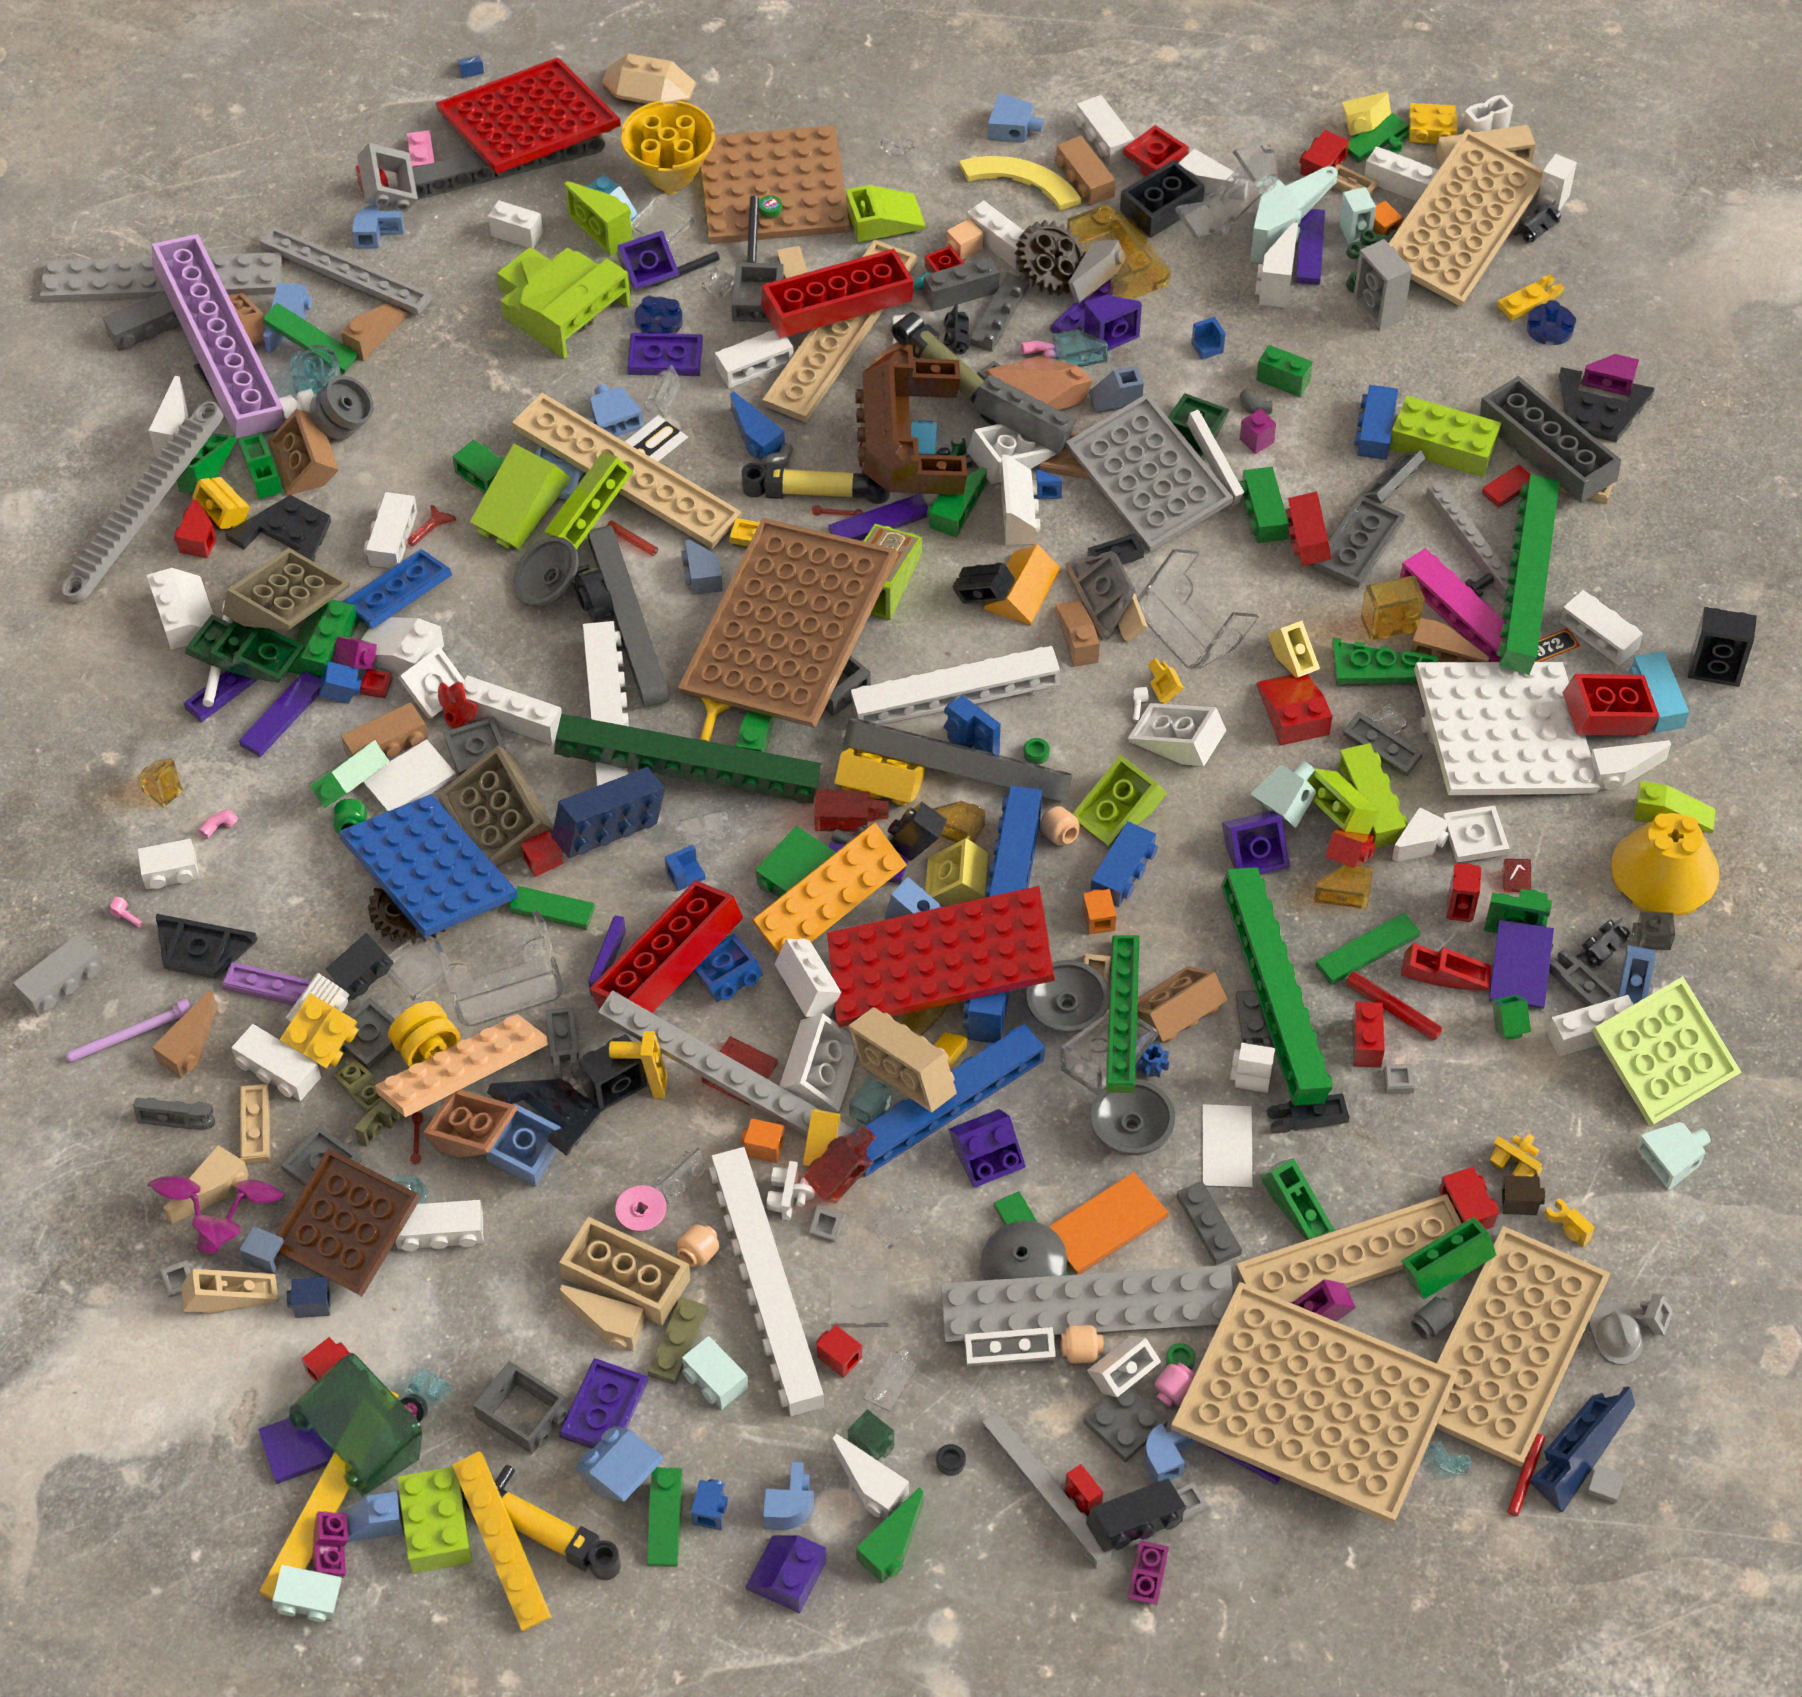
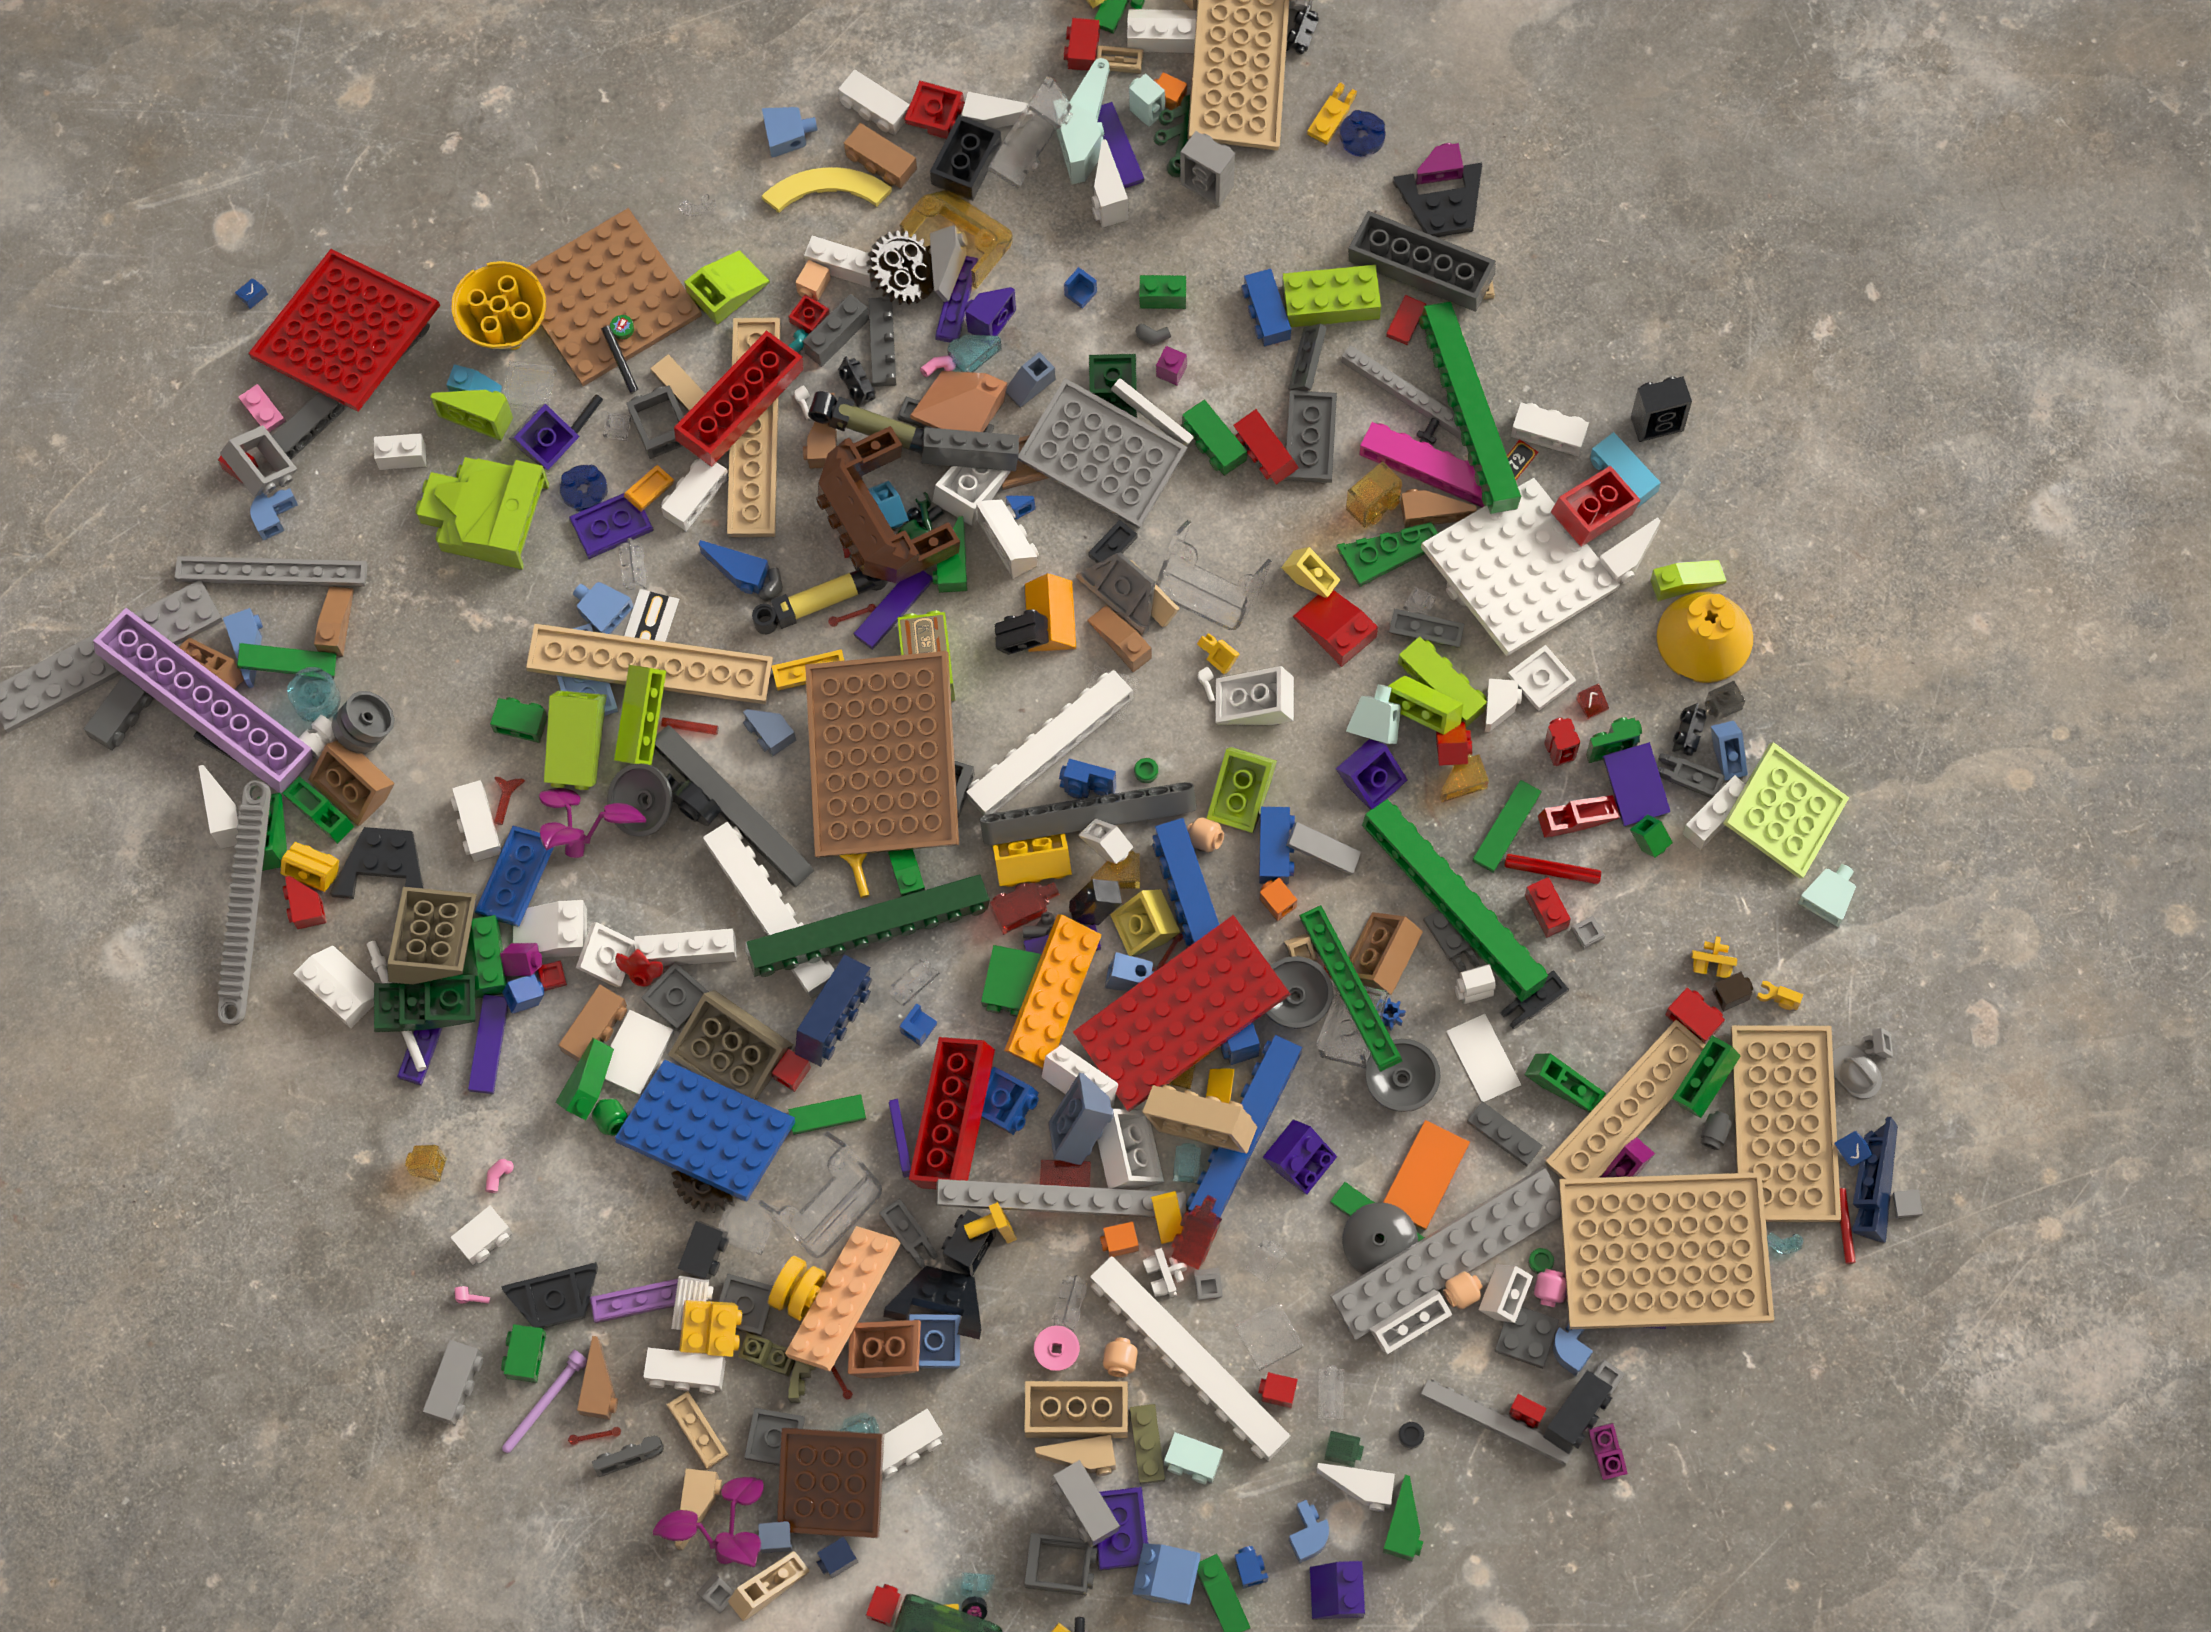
camera: 25 degrees left, 15 degrees up
(136, 1079) = (574, 1440): none -> clear red hinge
(139, 981) = (524, 1353): none -> green brick
(468, 580) = (574, 839): none -> magenta plant
(575, 1354) = (1084, 1504): none -> light grey wedge
(648, 80) = (428, 239): tan wedge -> none
(714, 338) = (649, 488): none -> light orange tile
(784, 1011) = (1079, 1120): none -> sand blue slope
(958, 783) = (1106, 840): none -> white slope
(1169, 885) = (1323, 848): none -> light grey tile
(1572, 1398) = (1853, 1148): none -> blue slope

